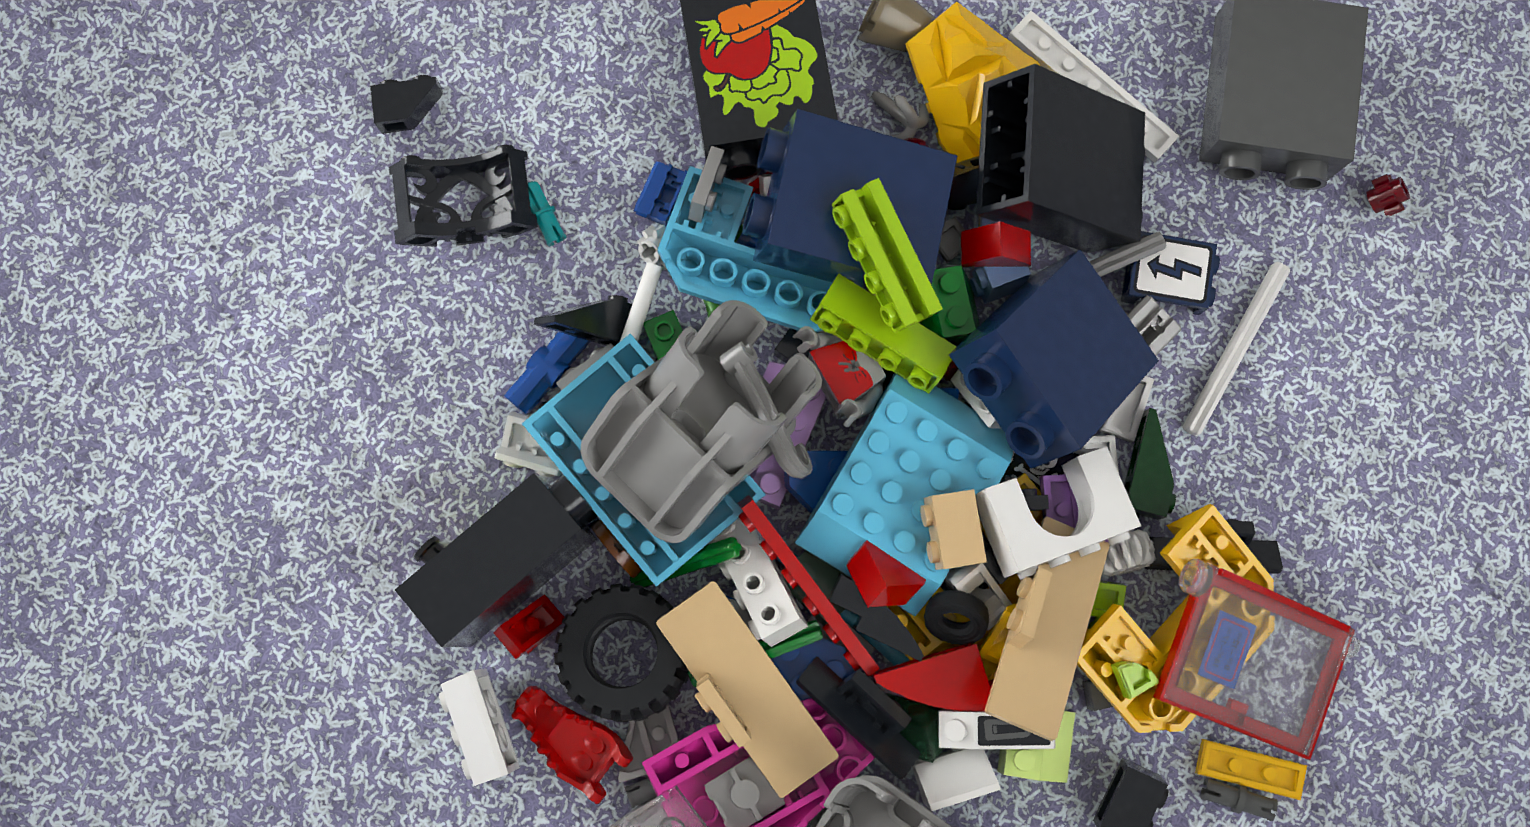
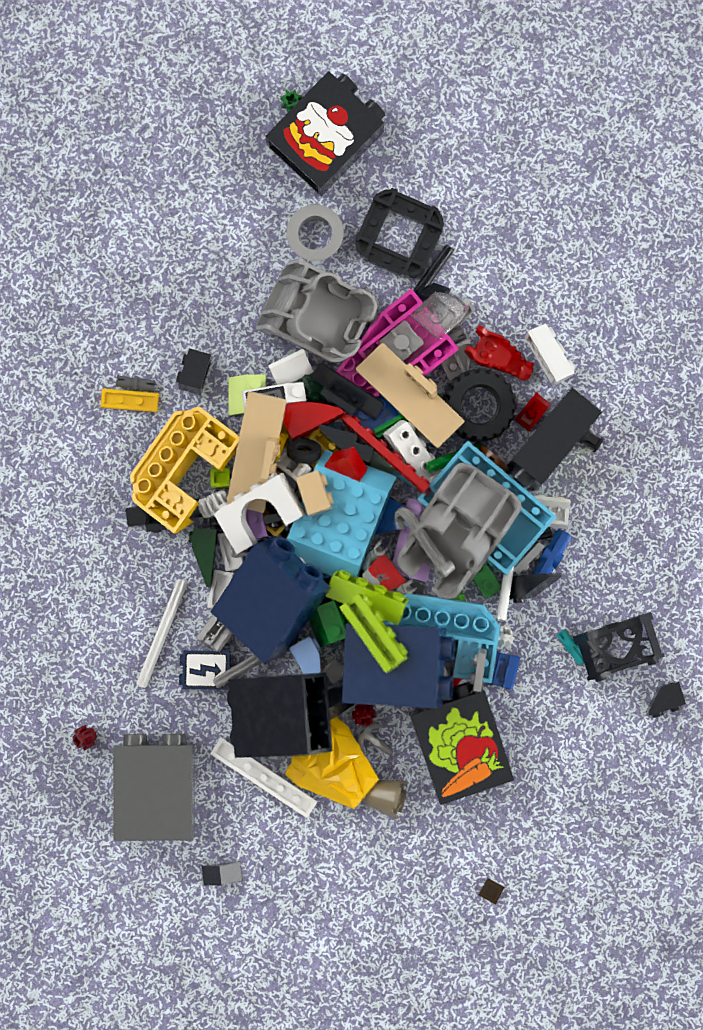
camera: 175 degrees right, 5 degrees up
(996, 246) = (311, 658): red slope -> none
(1133, 678) = (206, 433): lime tile -> none
(1254, 659) = (138, 455): clear door -> none

